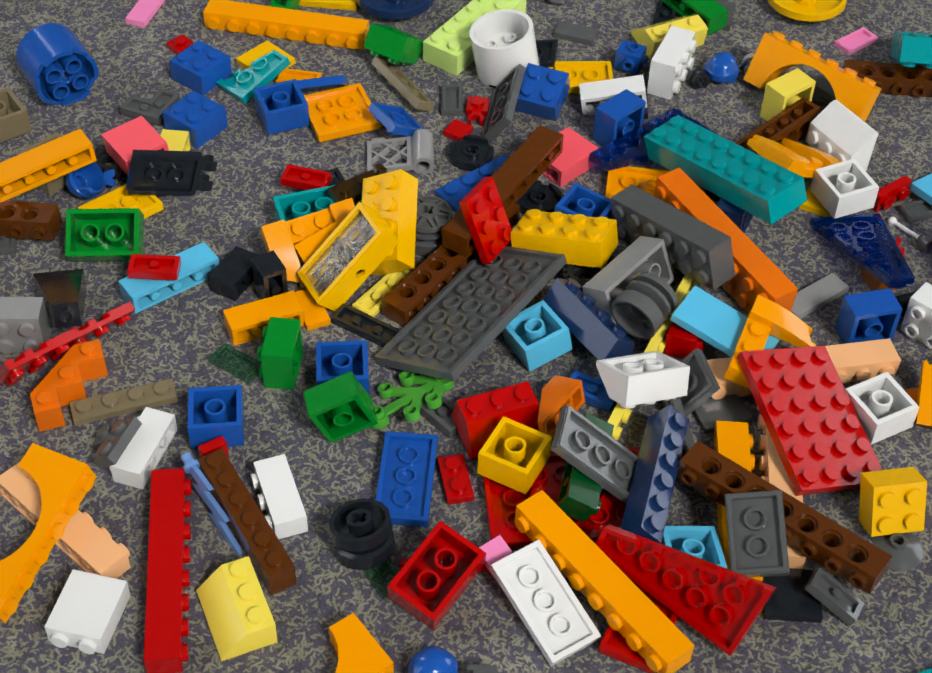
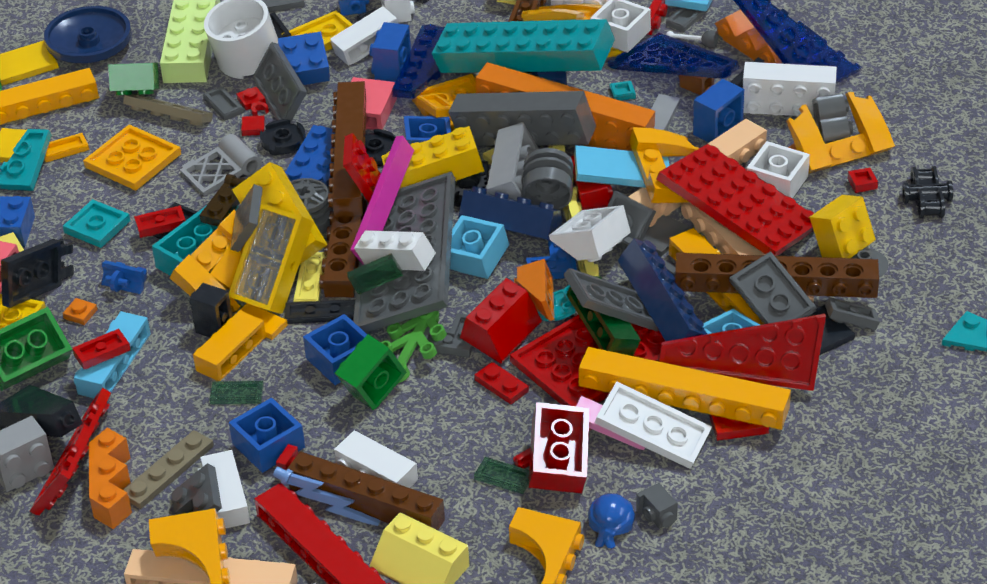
camera: 30 degrees left, 5 degrees down
(185, 225) = (80, 311): none -> orange plate
(233, 274) = (168, 324): black brick -> none
(238, 211) = (123, 277): none -> blue hips
(262, 155) = (96, 223): none -> teal plate
(281, 106) = (78, 174): blue brick -> none
(281, 353) = (278, 361): green brick -> none
(322, 83) = (88, 143): blue tile -> none
(344, 210) = (246, 218): none -> dark grey tile
(362, 534) = (472, 452): black wheel -> none
(395, 119) = (198, 140): blue plate -> none
(407, 477) = (464, 401): blue plate -> none
(424, 316) = (375, 274): none -> clear green tile
(454, 303) = (408, 248): none -> white brick
(485, 251) = (386, 189): none -> dark pink tile
(514, 455) = (542, 335): yellow brick -> none
(612, 184) = (434, 105): none -> light orange tile
(802, 253) = (622, 90): none -> teal tile

